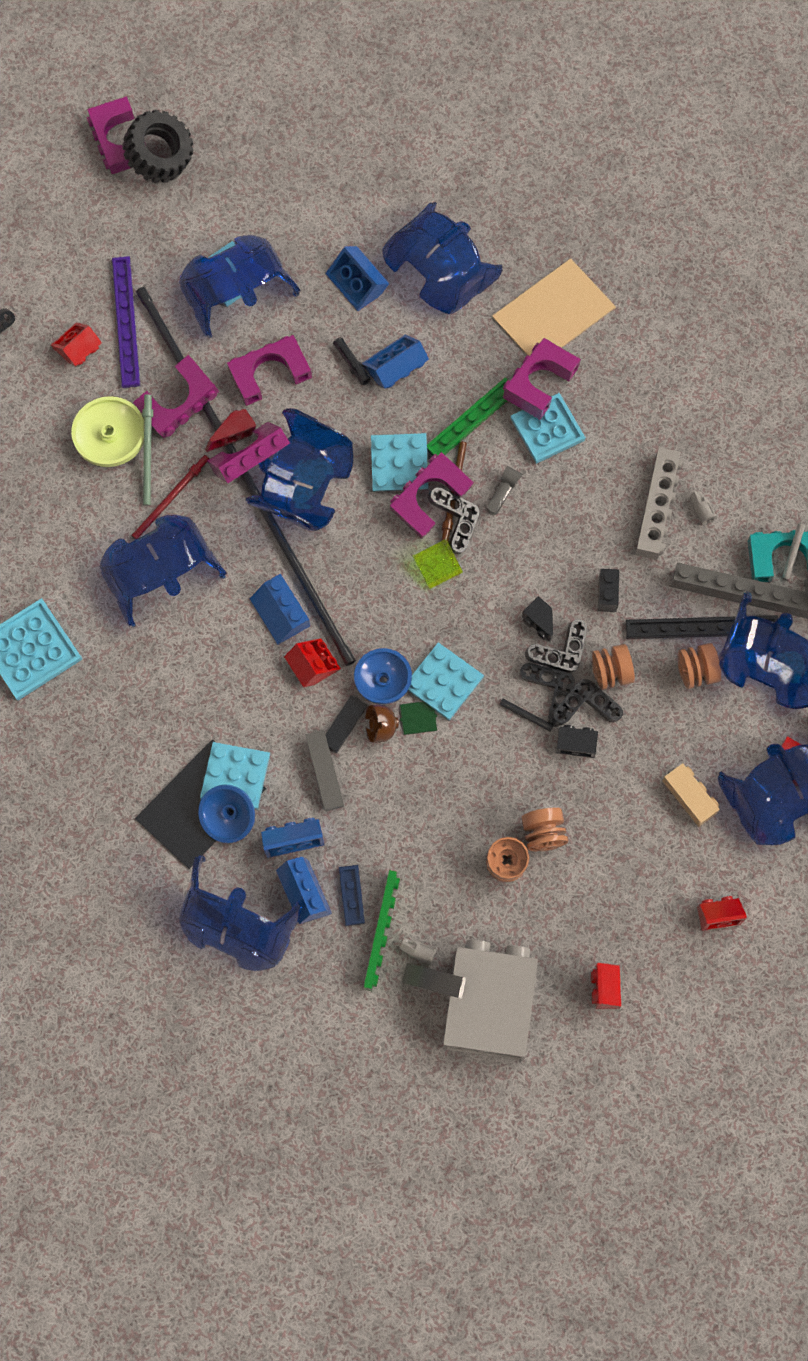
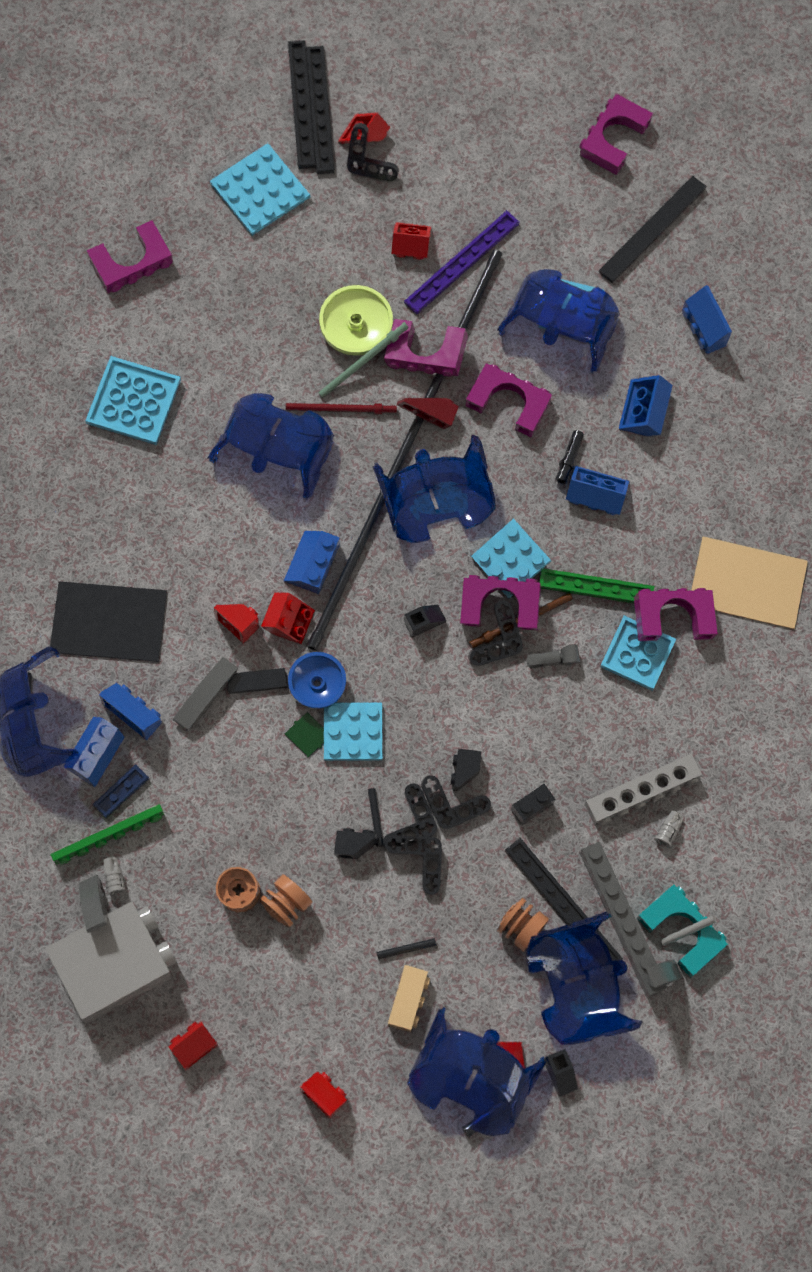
camera: 45 degrees right, 0 degrees up
(172, 132) = (648, 164): black tyre -> none
(216, 814) = (103, 645): blue dish -> none
(217, 169) = (652, 229): none -> black tile
(230, 466) = (437, 444): magenta arch -> none
(237, 767) = (149, 630): medium azure plate -> none
(284, 700) = (238, 620): none -> red slope
(326, 183) = (707, 320): none -> blue slope
(381, 723) = (277, 709): reddish brown cylinder -> none
(396, 562) = (424, 619): none -> black slope
(437, 564) = (448, 653): clear neon green tile -> none
(452, 271) = (712, 473): clear blue piece -> none
(536, 747) = (354, 844): none -> black slope
(577, 741) = (382, 873): black brick -> none
(609, 667) = (466, 855): nougat wheel -> none
(649, 767) = (406, 948): none -> black bar

